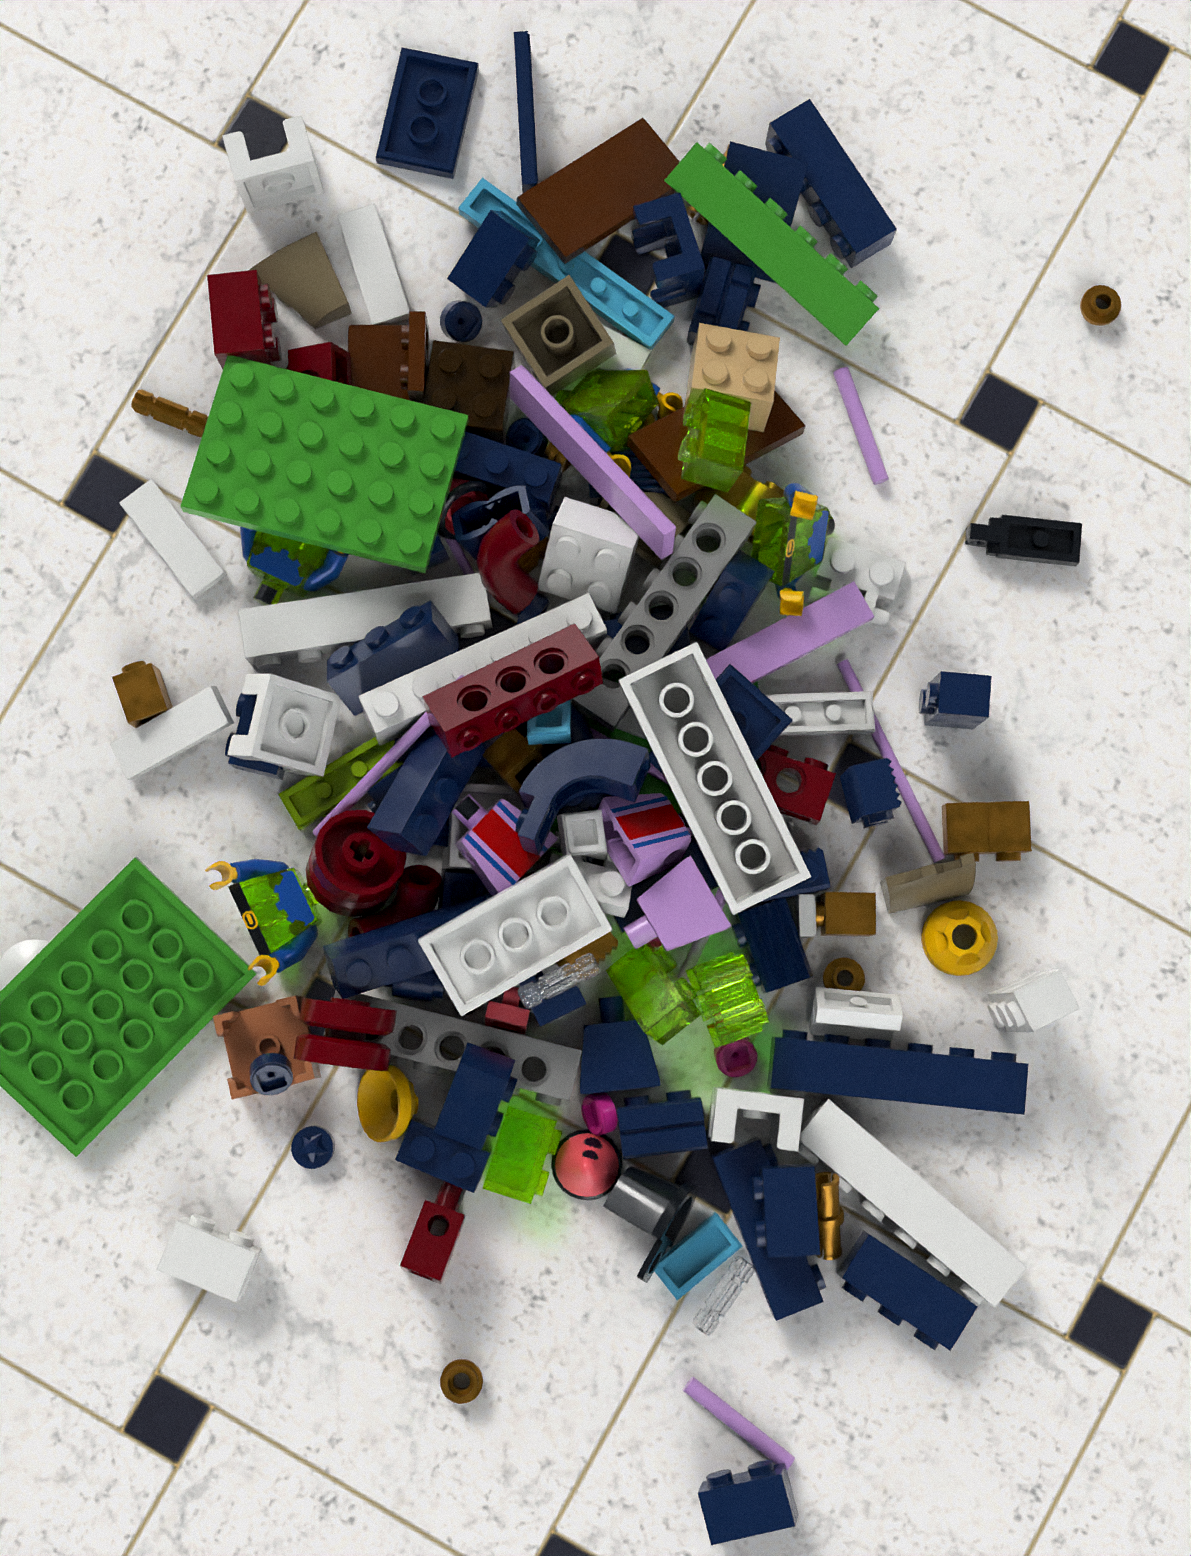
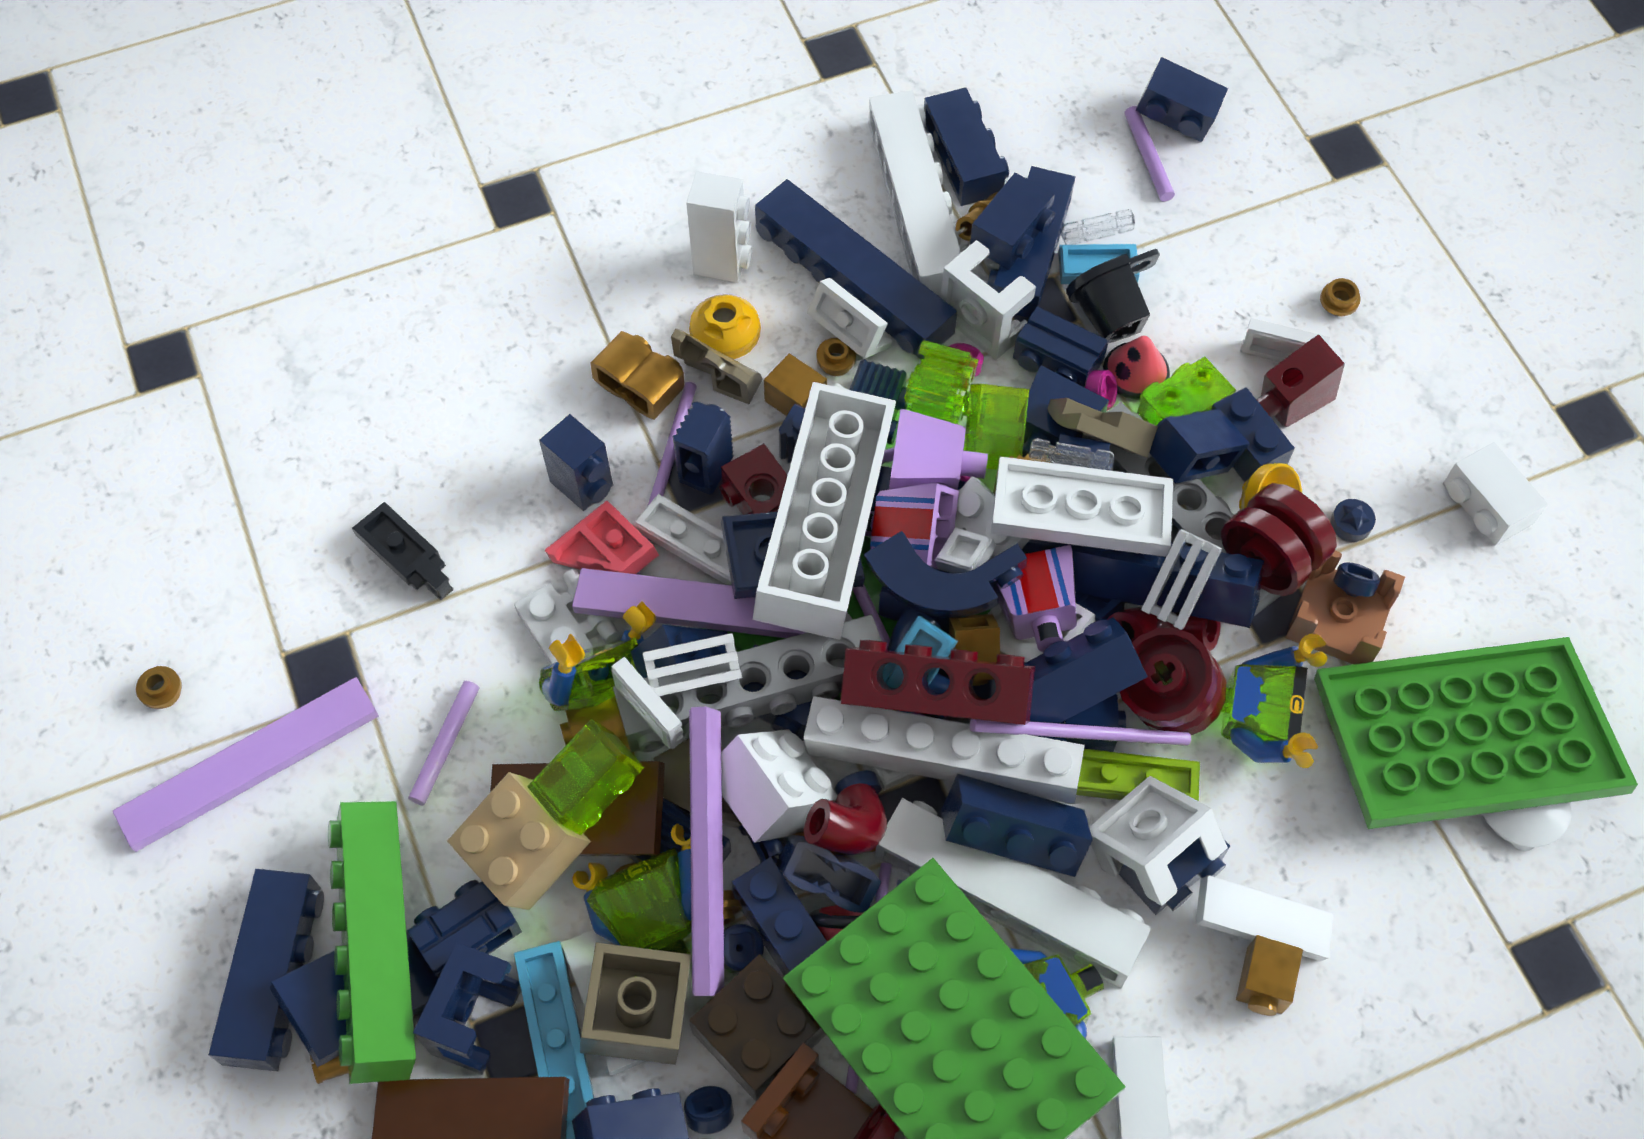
camera: 140 degrees left, 20 degrees down
(391, 903) = (1164, 613): none -> white tile
(476, 1283) = (1274, 340): none -> white tile
(561, 1047) = (1110, 427): none -> dark tan slope
(704, 569) = (730, 656): none -> white tile
(715, 517) = (647, 703): none -> white tile
(879, 660) = (603, 543): none -> coral wing
(983, 306) = (244, 764): none -> lavender tile

